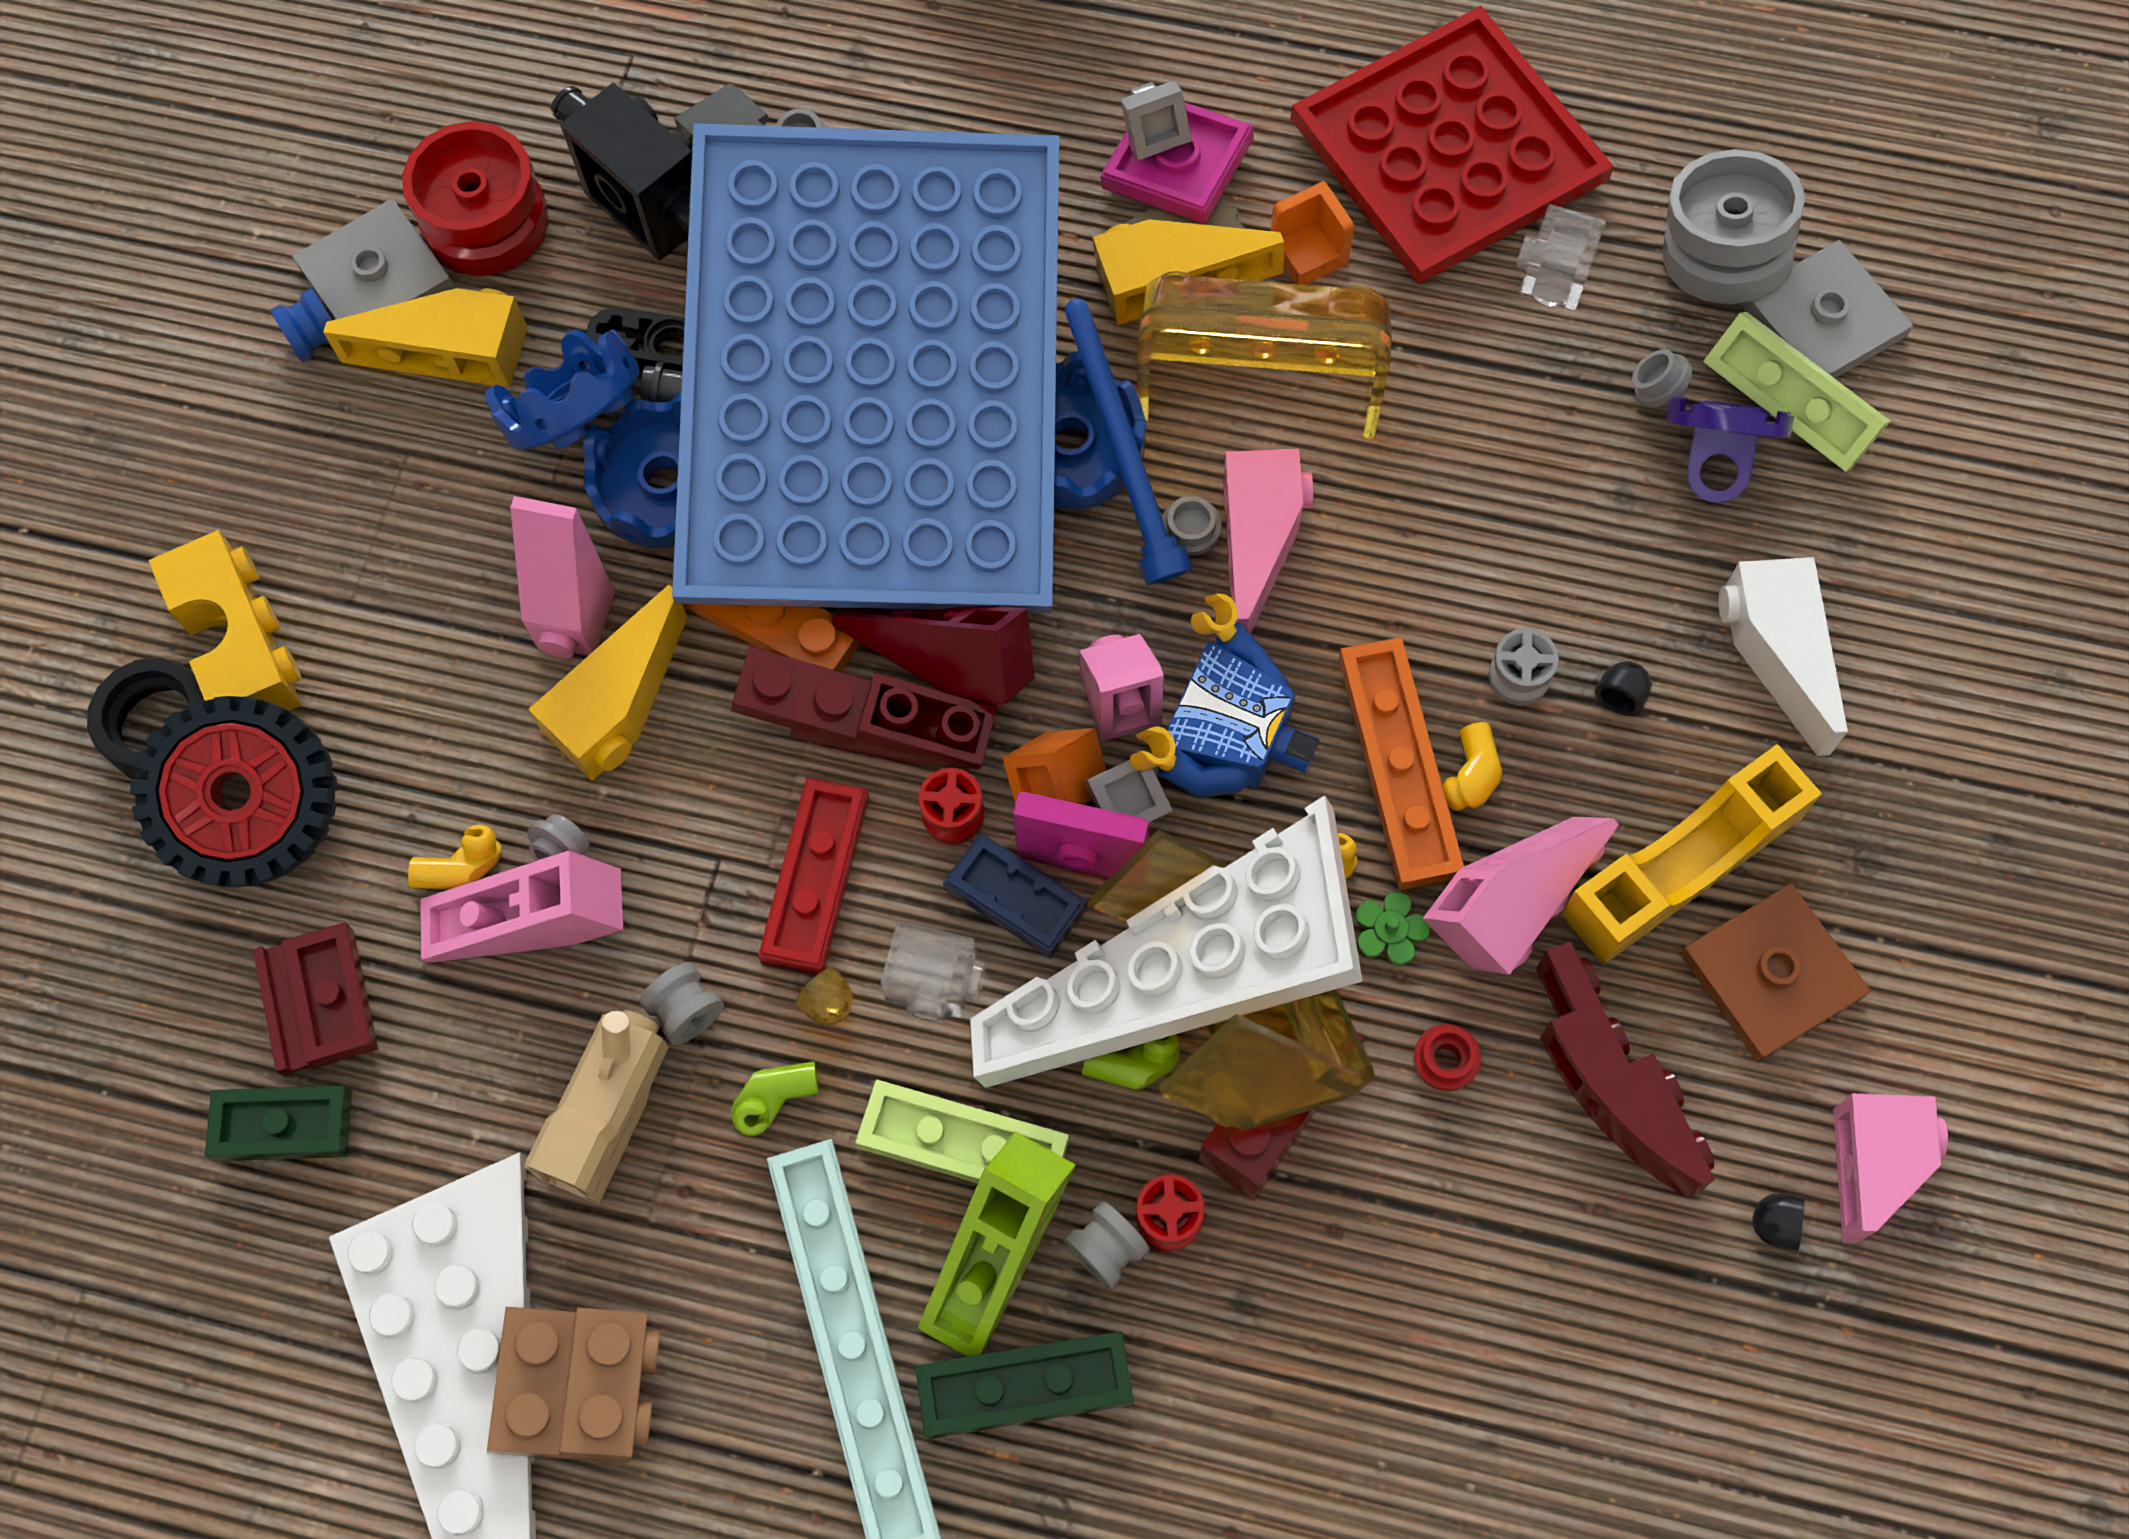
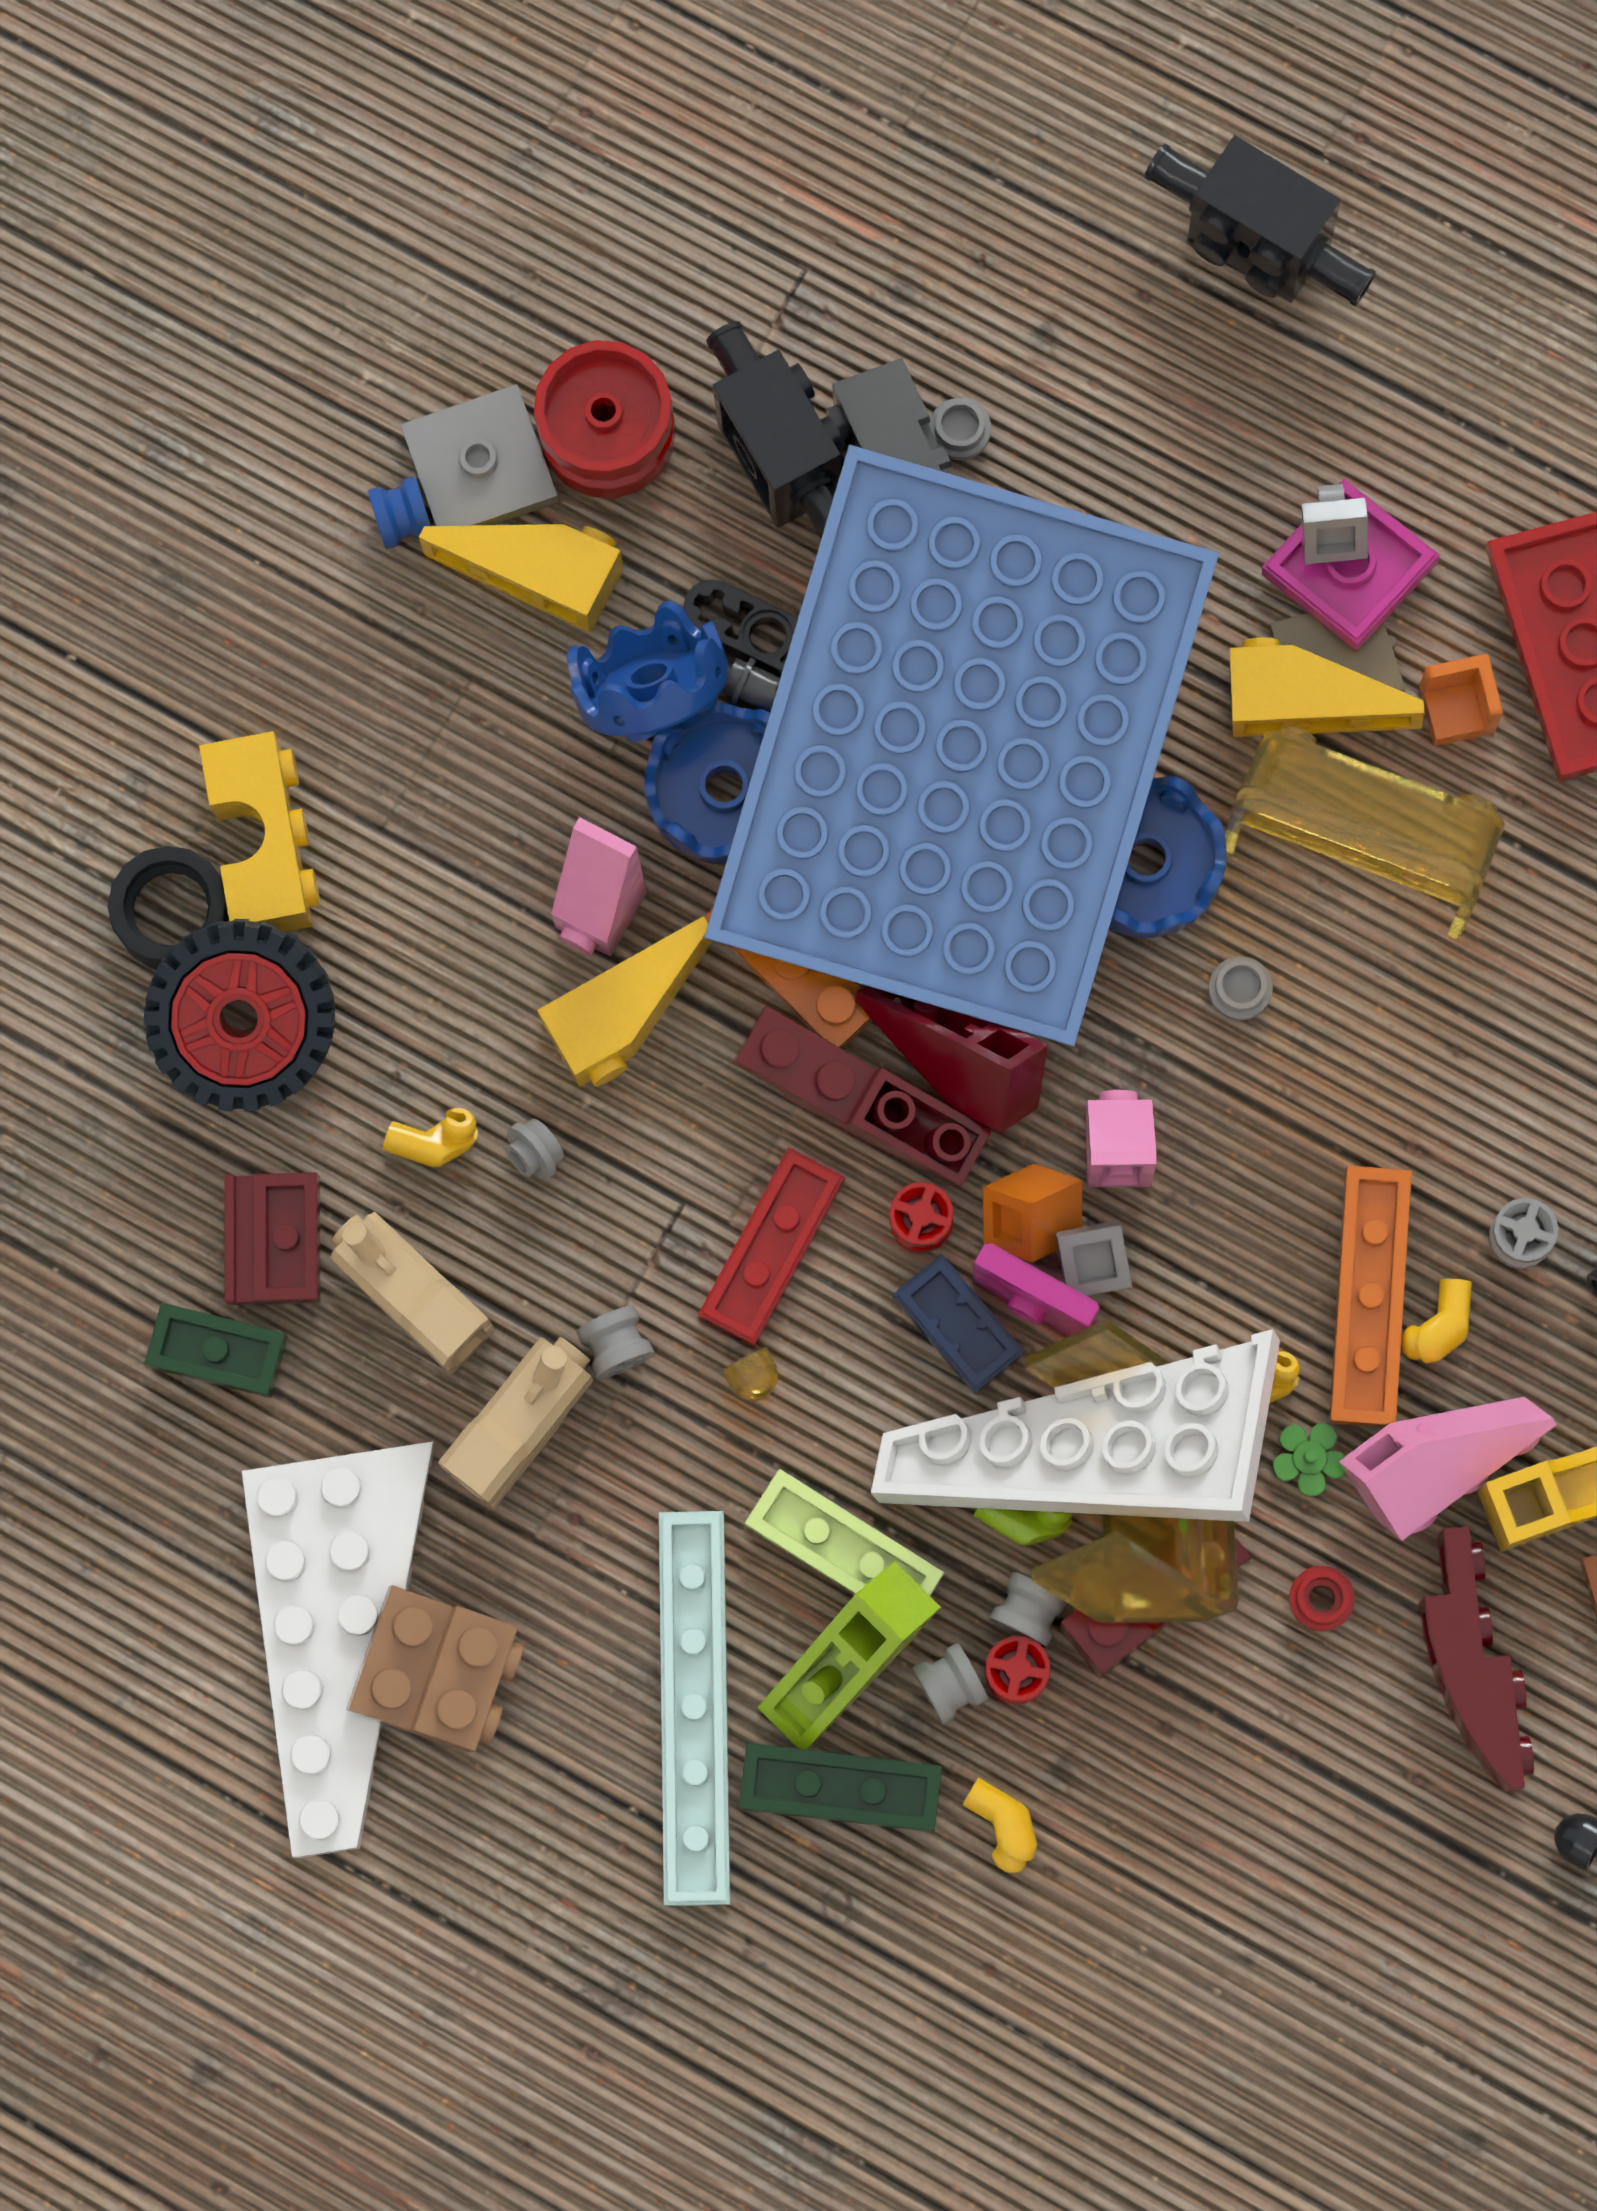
camera: 20 degrees right, 10 degrees up
(463, 1009) = (410, 1291): none -> tan piece
(524, 909) = (485, 1207): bright pink slope -> none
(767, 1092) = (674, 1449): lime arm -> none
(932, 972) = (858, 1380): clear brick -> none
(1161, 553) = (1201, 1012): blue piece -> none
(1164, 1146) = (1028, 1610): none -> light grey wheel
(1210, 1373) = (1010, 1822): none -> yellow arm
(1228, 716) = (1215, 1206): torso -> none
(1262, 521) = (1313, 1004): bright pink slope -> none

